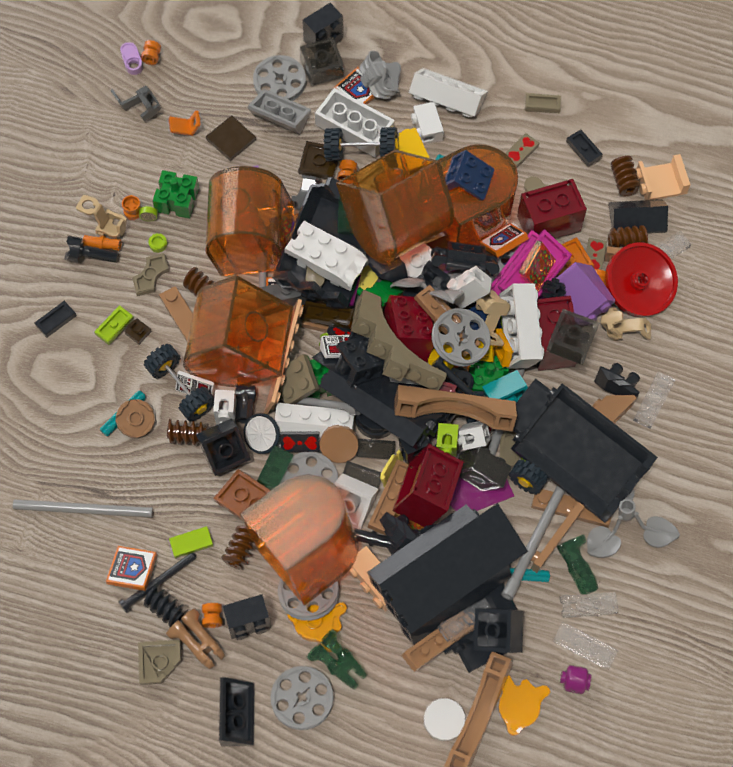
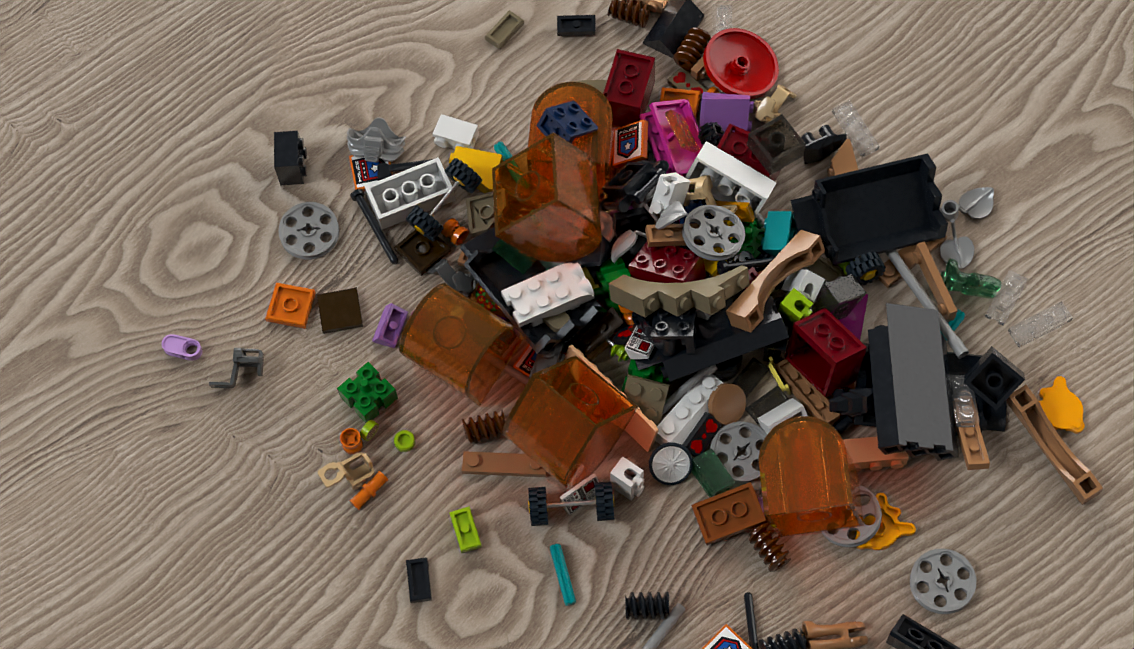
camera: 50 degrees left, 0 degrees up
(77, 249) = (361, 515): black piece -> none
(132, 486) = (647, 605): none -> black piece
(135, 418) = (577, 566): medium nougat tile -> none
(138, 331) = (486, 512): dark brown tile -> none
(146, 280) = (437, 474): dark tan tile -> none
(151, 52) = (191, 325): orange wheel -> none
(184, 432) = (624, 527): reddish brown piece -> none
(185, 126) = (296, 342): orange bracket -> none
(191, 542) = (733, 589): lime tile -> none
(212, 104) = (290, 305): none -> orange tile
(212, 615) = (823, 612): orange wheel -> none
(223, 446) = (665, 502): black brick -> none
(245, 398) = (622, 449): black piece -> none
(247, 617) = (845, 575): black brick -> none
(280, 111) = (347, 249): light grey slope -> none
(311, 123) = (358, 195): none -> black bar
(322, 61) = (323, 181): clear smoke brick -> none
(337, 667) = (937, 532): clear green piece -> none
(362, 95) = (384, 170): none -> black piece
(444, 719) = (1035, 476): white tile -> none
(447, 92) = (436, 97): white slope -> none
(522, 149) = (538, 76): dark tan tile -> none
(575, 679) = (1067, 349): magenta head -> none

